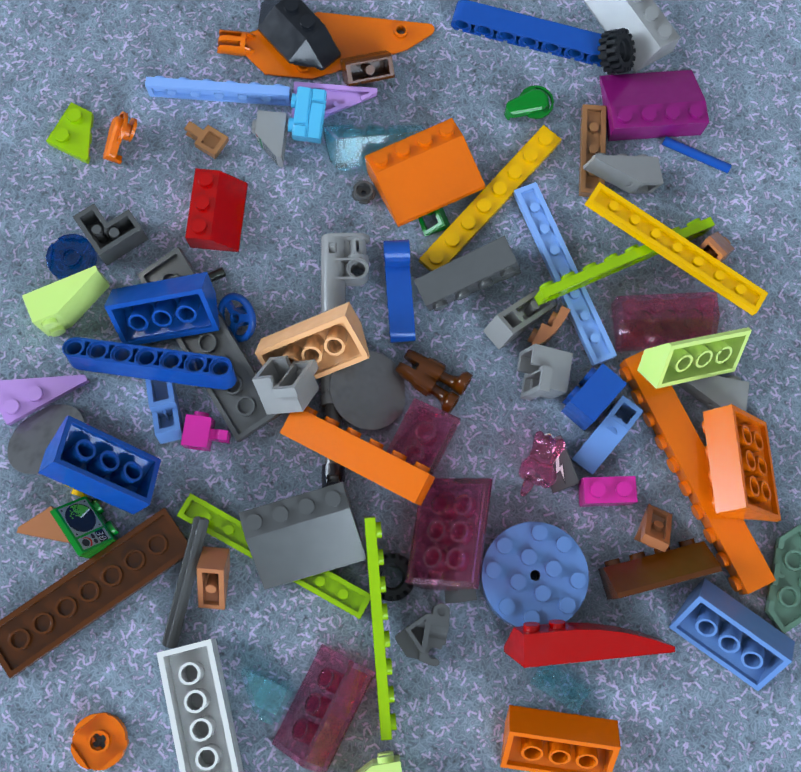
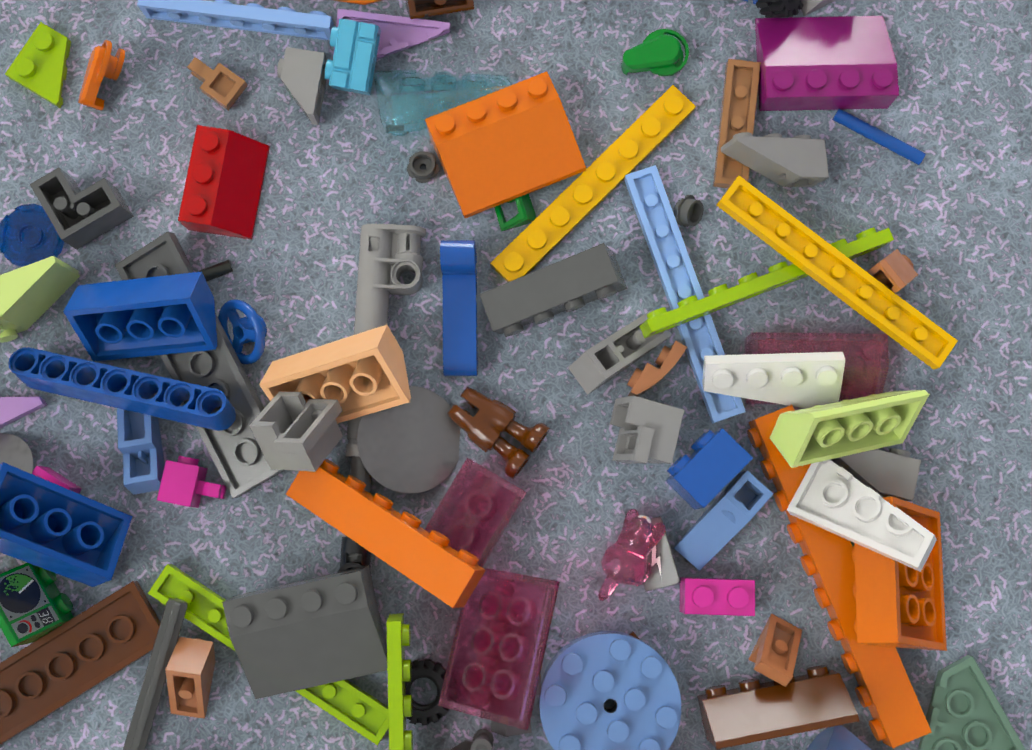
camera: 10 degrees right, 5 degrees up
(562, 214) = (688, 211): none -> dark grey plate
(638, 326) = (777, 378): none -> white wing
(700, 416) = (853, 511): none -> white wing

